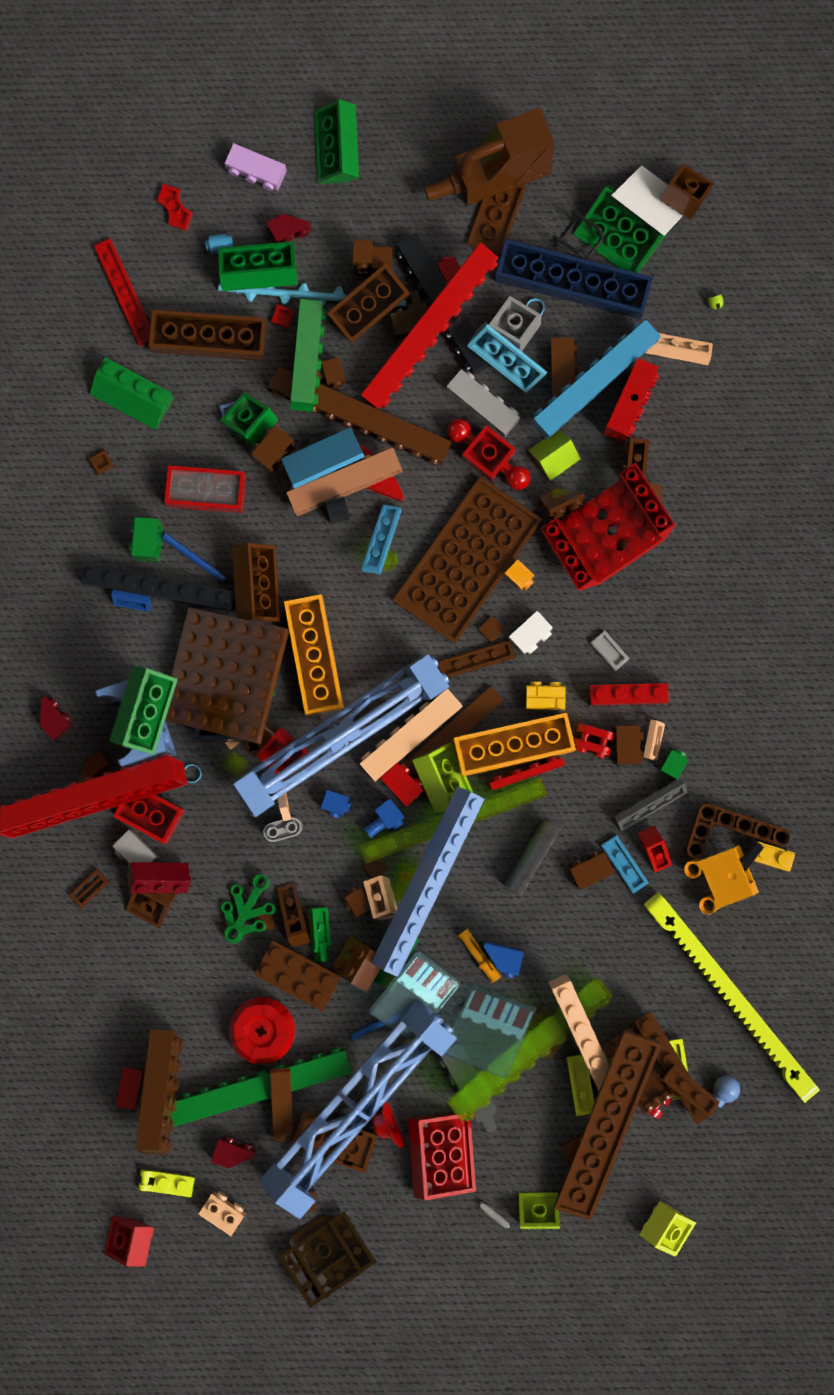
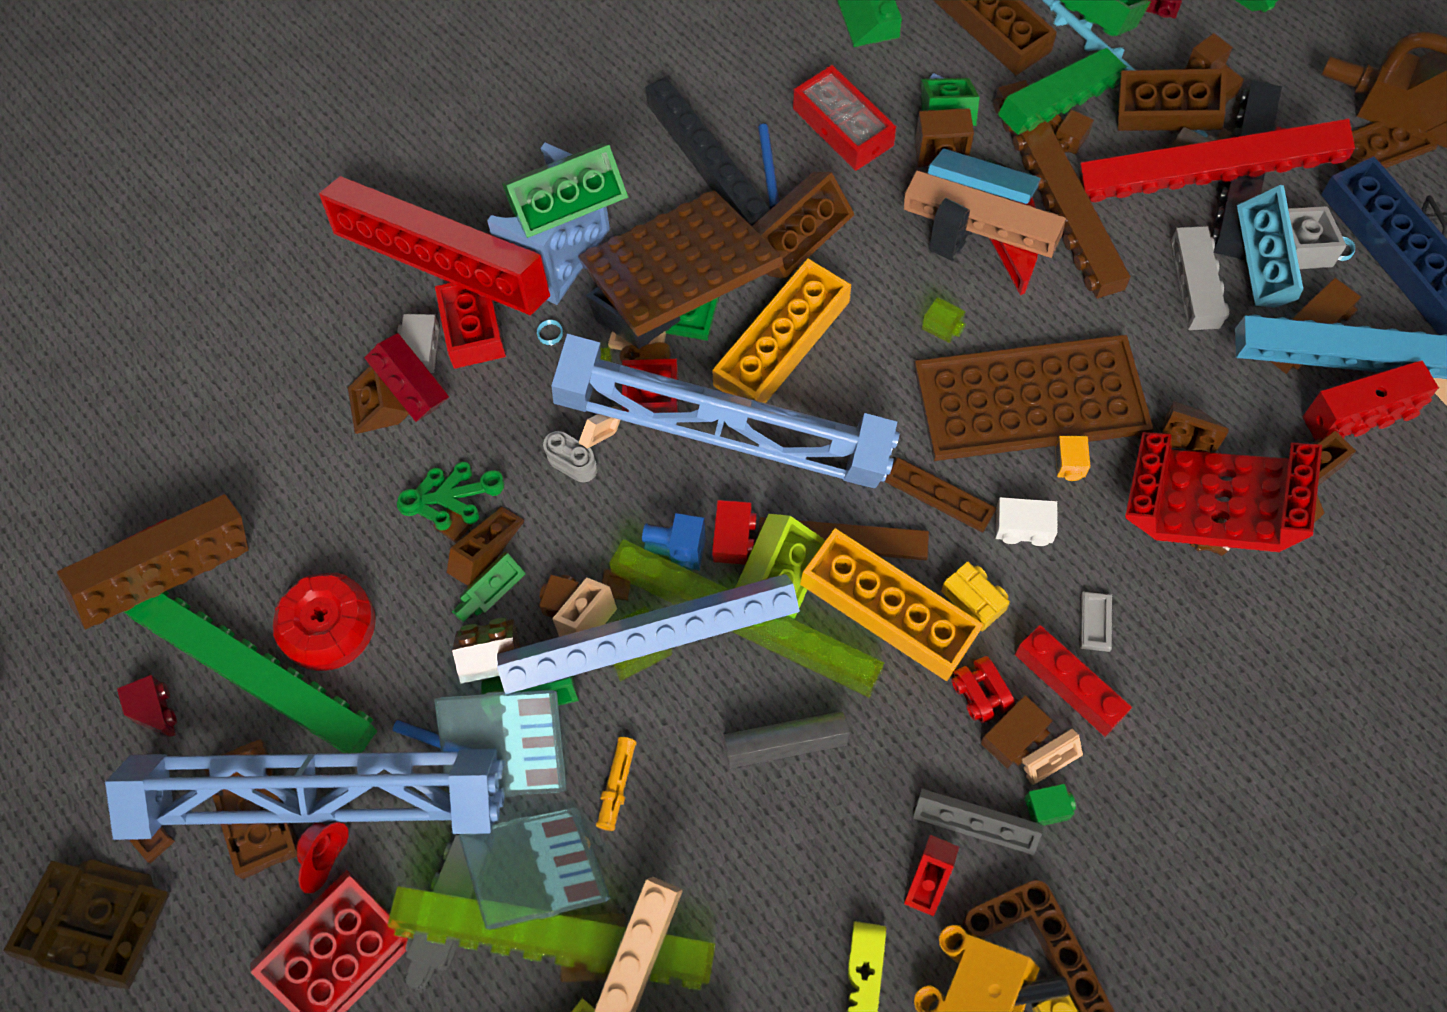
camera: 45 degrees right, 20 degrees down
(52, 719) = (488, 173): dark red slope -> none
(83, 883) = (347, 344): reddish brown tile -> none
(101, 462) = (777, 29): reddish brown tile -> none
(131, 600) = (671, 145): blue tile -> none
(146, 539) = (743, 106): green brick -> none
(167, 1183) = (60, 670): neon yellow plate -> none
(222, 1212) = (64, 756): light nougat brick -> none
(281, 1105) = (248, 707): reddish brown tile -> none
(282, 316) = (1070, 55): red tile -> none
(298, 975) = (418, 604): reddish brown brick -> none
(336, 804) = (647, 485): blue brick -> none
(381, 539) = (964, 296): dark azure tile -> none
(410, 735) = (797, 495): light nougat brick -> none
(488, 454) = (1158, 323): red brick -> none
(491, 629) = (987, 482): reddish brown tile -> none
(505, 958) = (636, 804): blue slope -> none
(518, 775) = (909, 668): red plate -> none
(555, 454) = (1229, 388): lime slope -> none
(591, 870) = (834, 821): reddish brown brick -> none
(624, 864) = (879, 857): dark azure tile -> none

